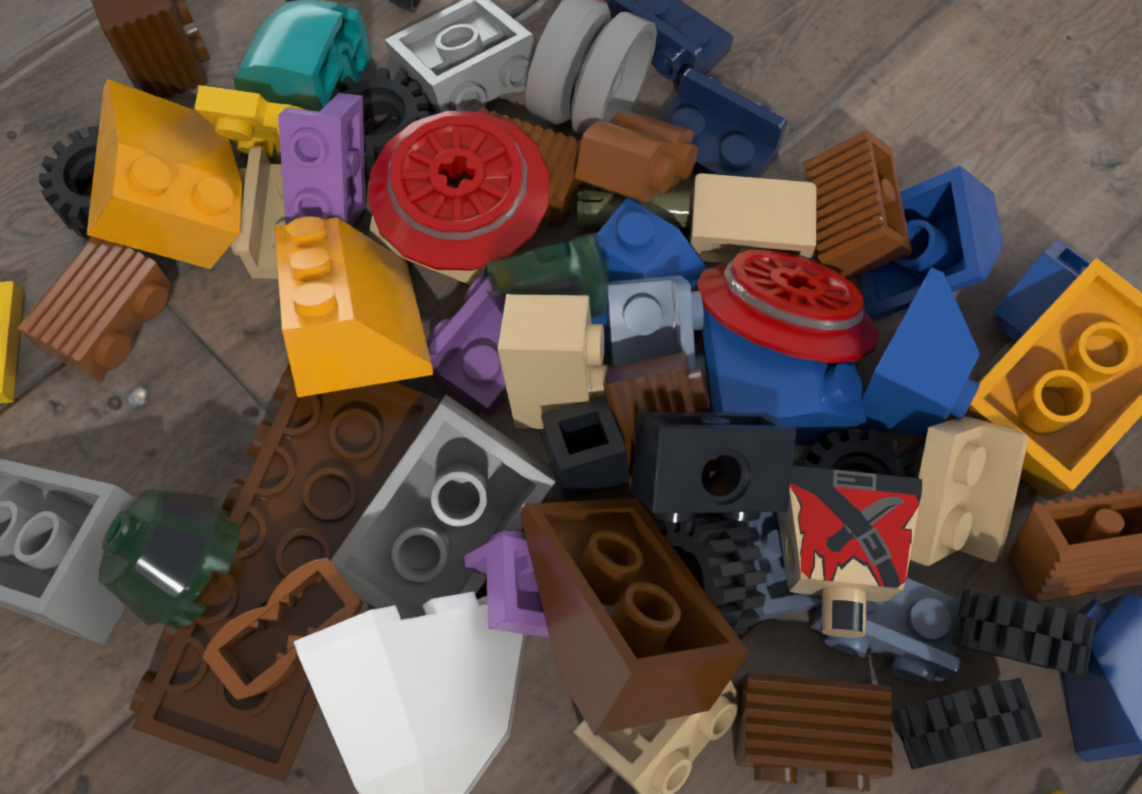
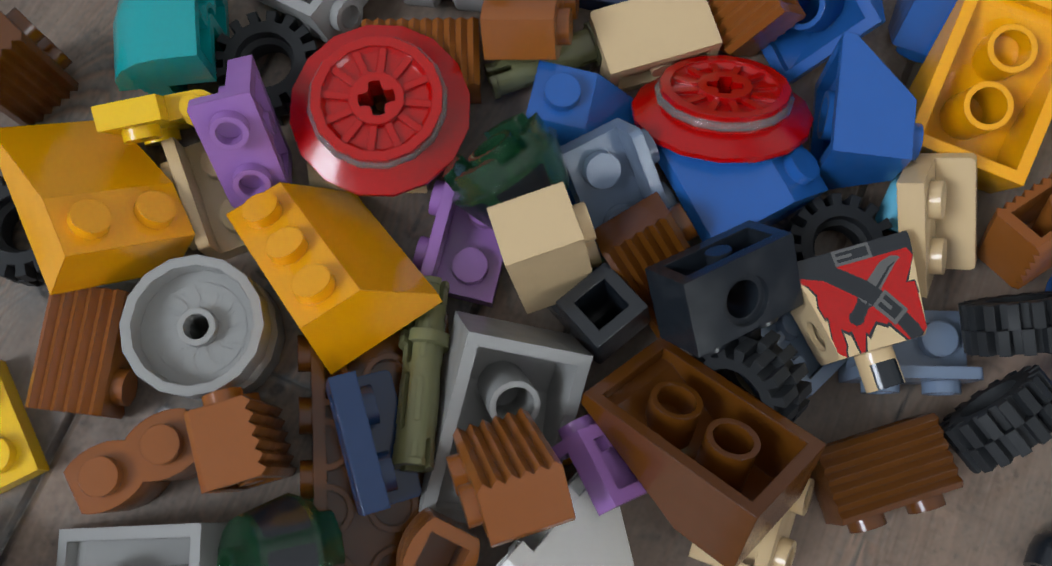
camera: 25 degrees left, 10 degrees up
(93, 424) = (133, 470): none -> dark orange brick
(187, 433) = (237, 441): none -> dark orange brick
(205, 324) = (168, 323): none -> light grey wheel
(308, 477) = (366, 428): none -> dark blue bracket
(371, 457) = (419, 388): none -> olive pin
(412, 554) = (509, 478): none -> dark orange brick

